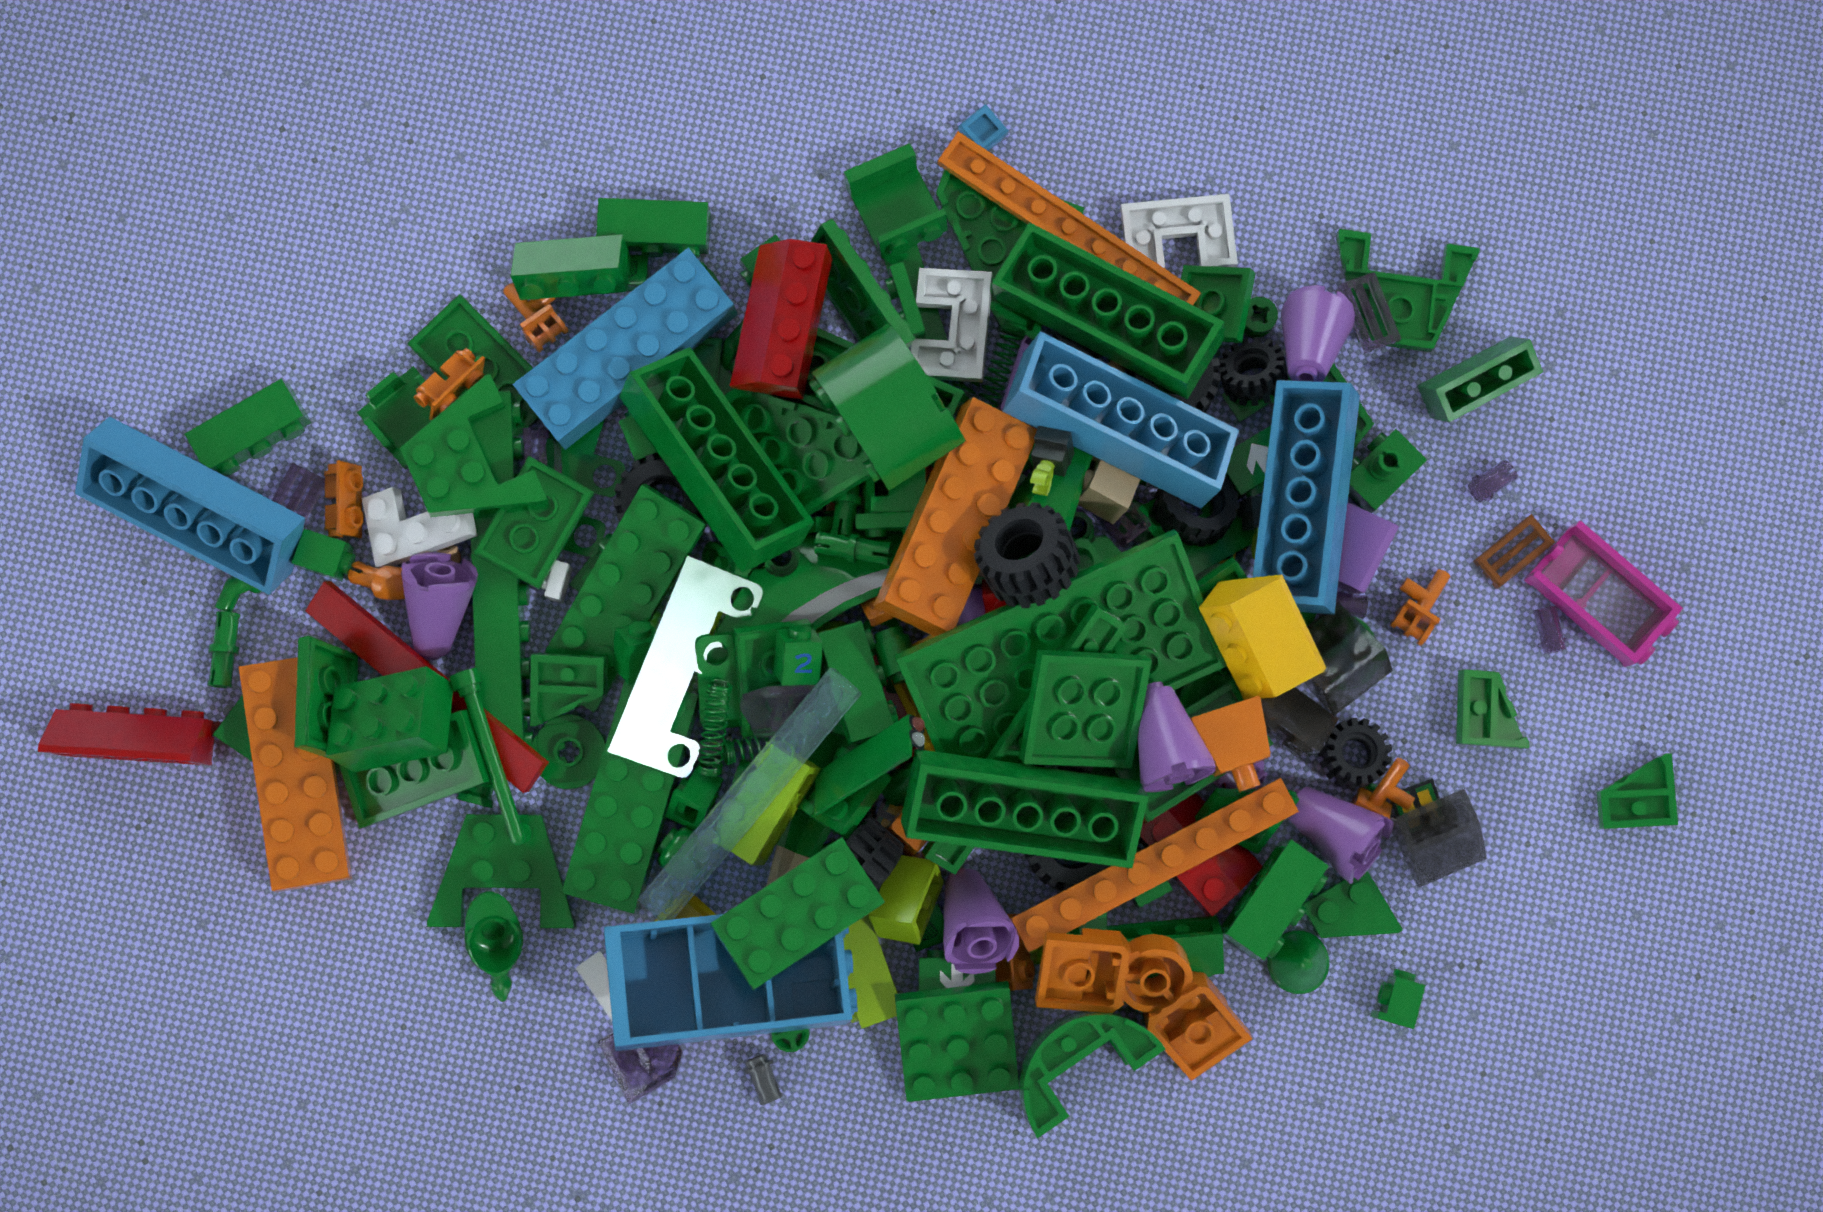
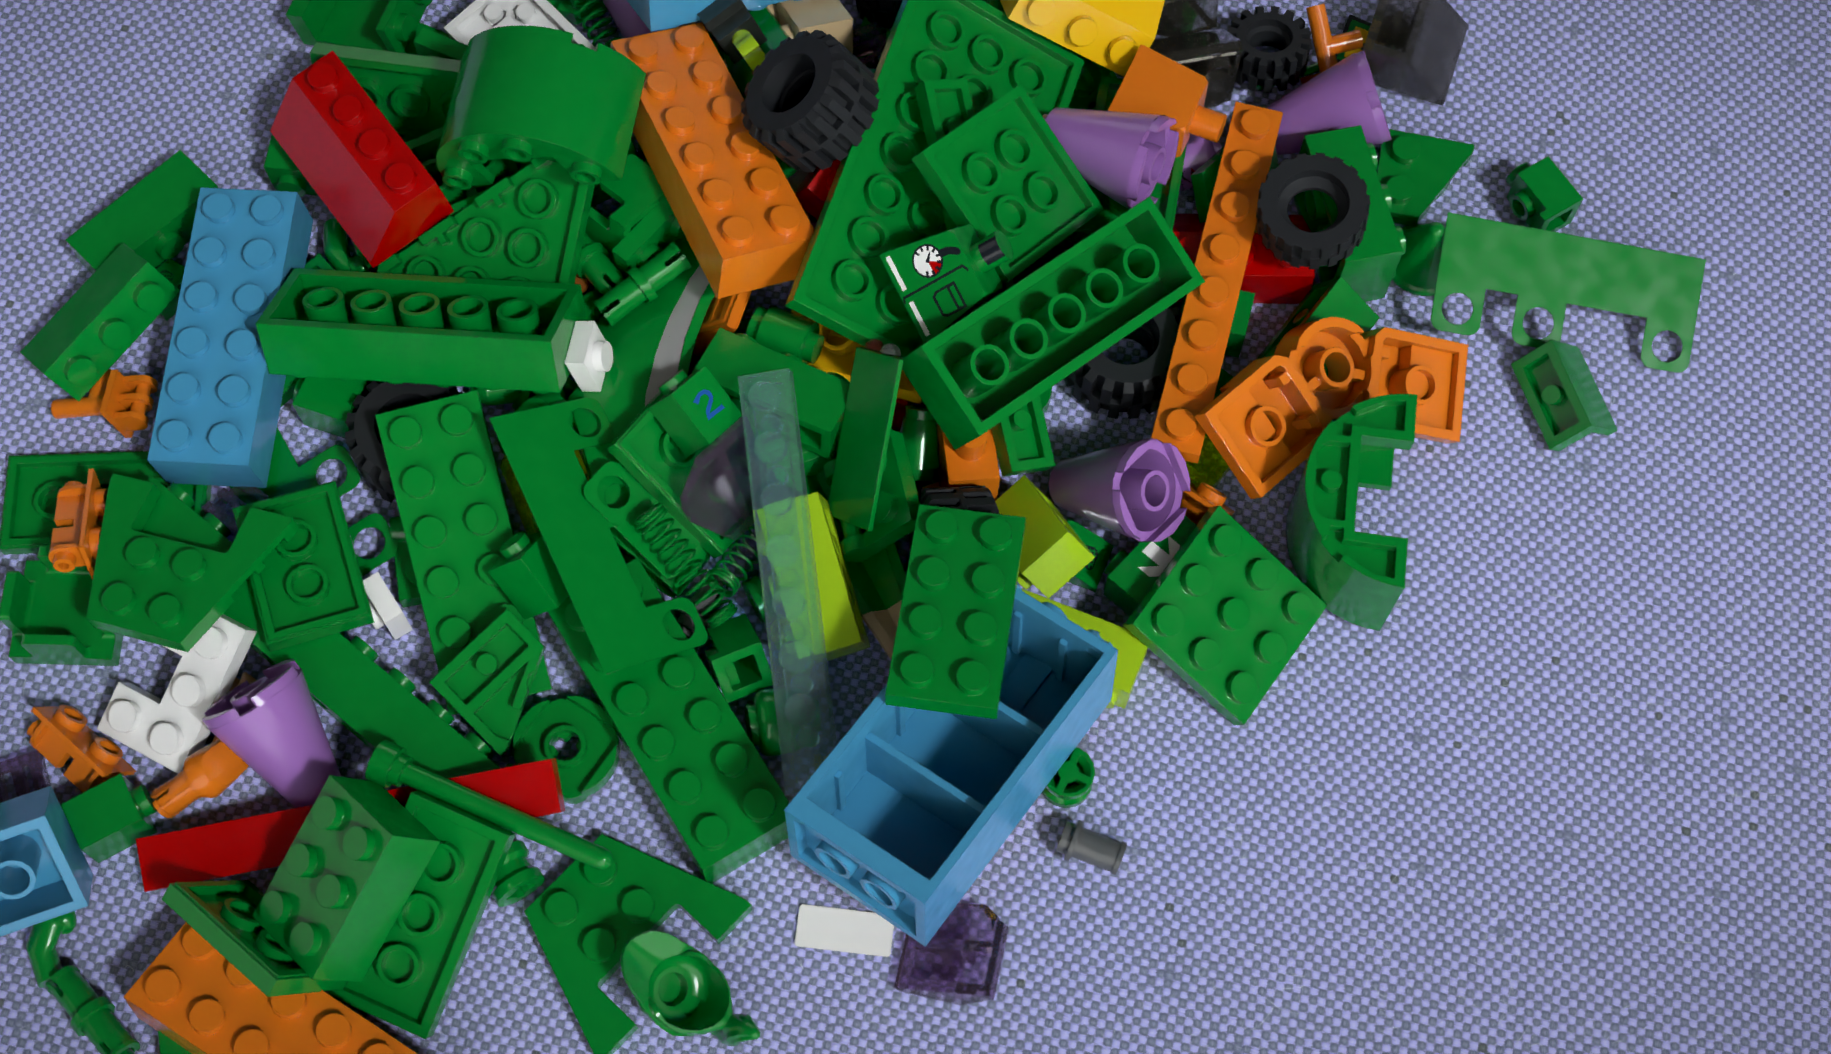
camera: 45 degrees left, 15 degrees down
(781, 563) = (588, 356): none -> white plate
(990, 728) = (947, 276): none -> green torso
(1267, 885) = (1319, 174): none -> black tyre
(1277, 1117) = (1562, 394): none -> green panel
(1351, 1053) = (1565, 269): none -> green piece

